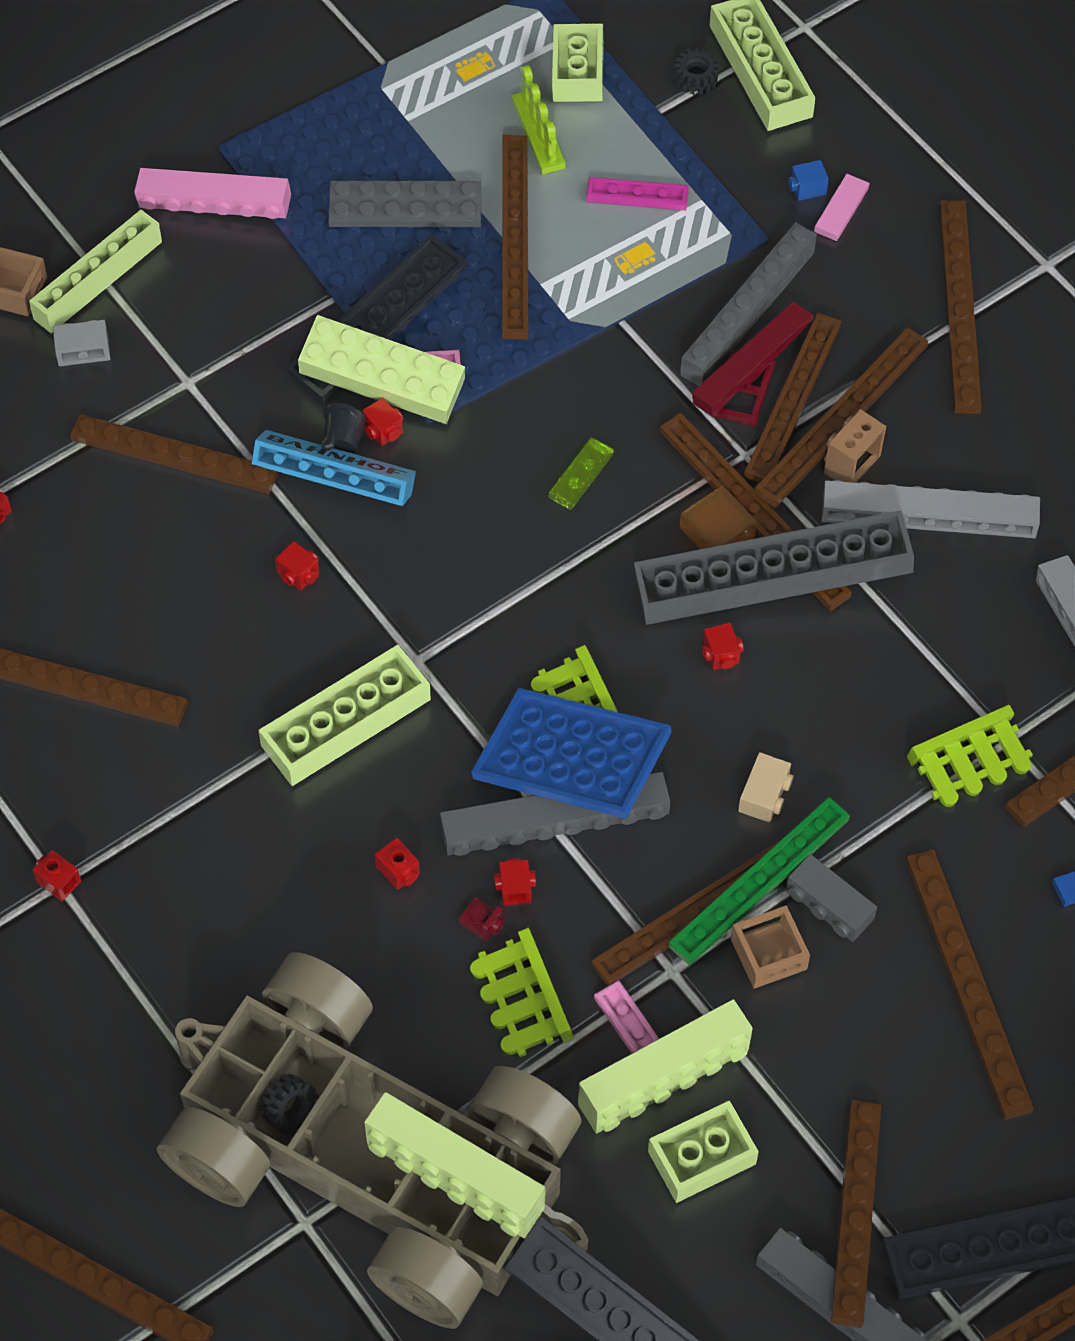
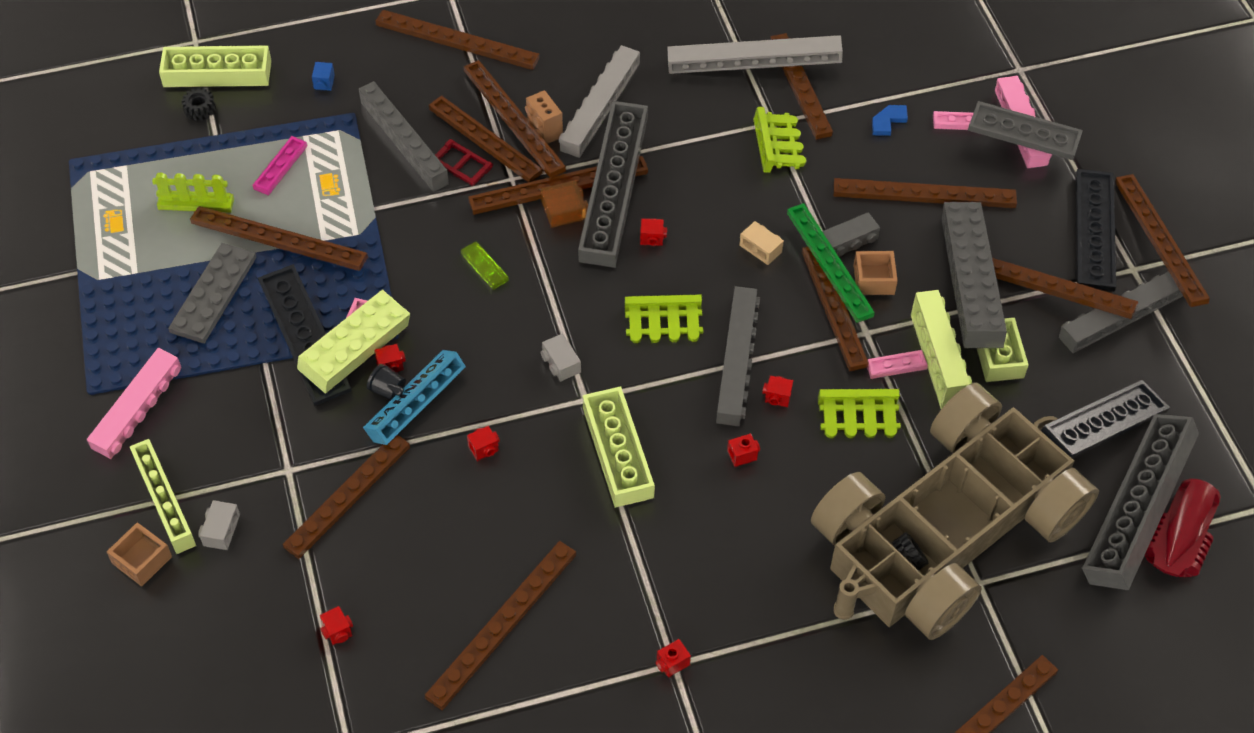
camera: 70 degrees left, 5 degrees down
(454, 1166) = (1006, 453): yellowish green brick -> none
(464, 607) = (561, 357): none -> light grey brick
(482, 919) = (797, 418): dark red bracket -> none
(572, 753) = (704, 326): blue plate -> none
(577, 62) = (156, 154): yellowish green brick -> none
(750, 360) = (449, 147): dark red slope -> none
(814, 1073) = (973, 276): none -> dark grey brick
(841, 207) = (350, 69): bright pink tile -> none

